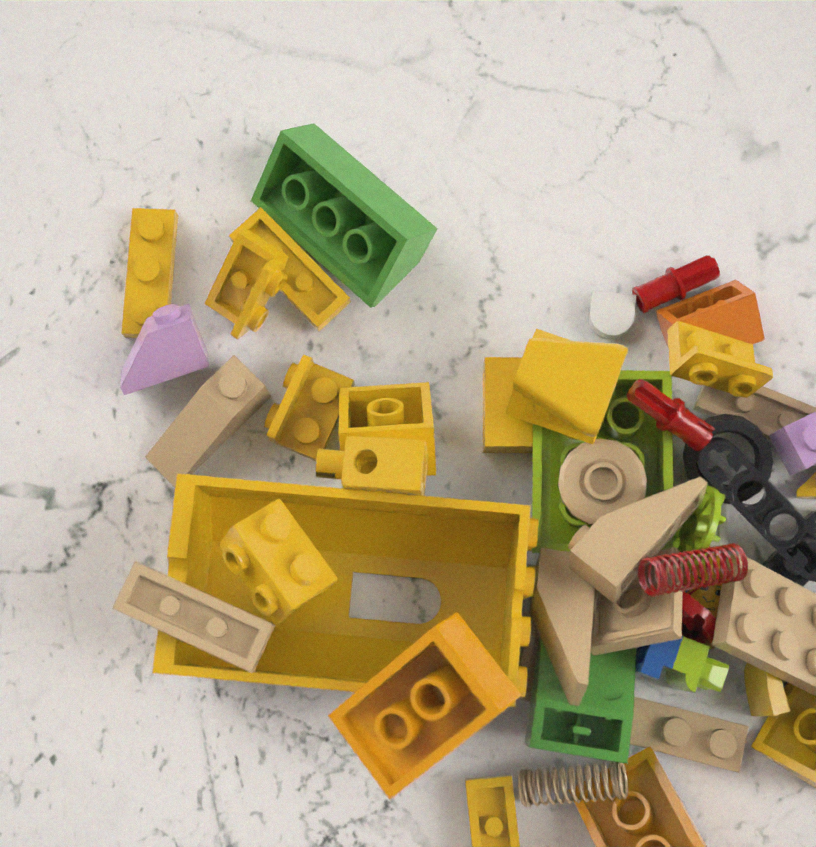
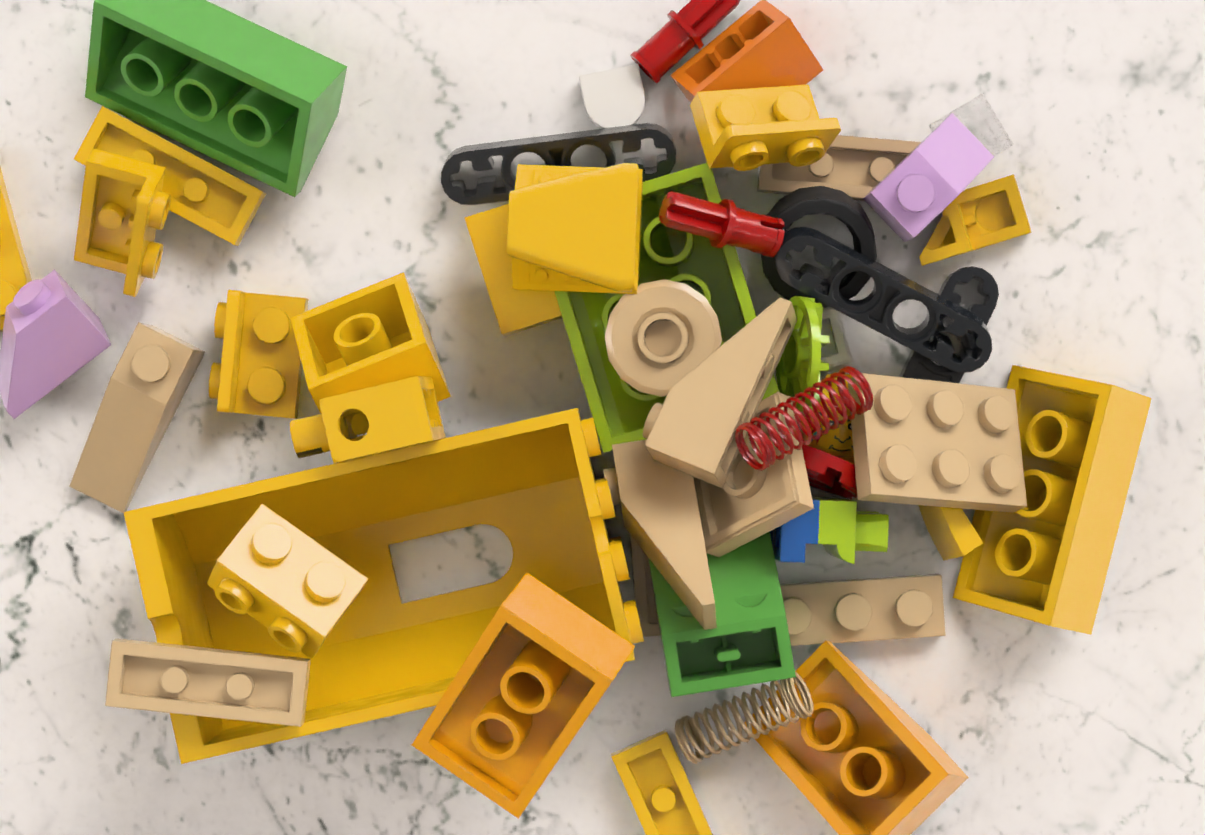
camera: 20 degrees left, 10 degrees up
(564, 331) = (555, 151): none -> black beam

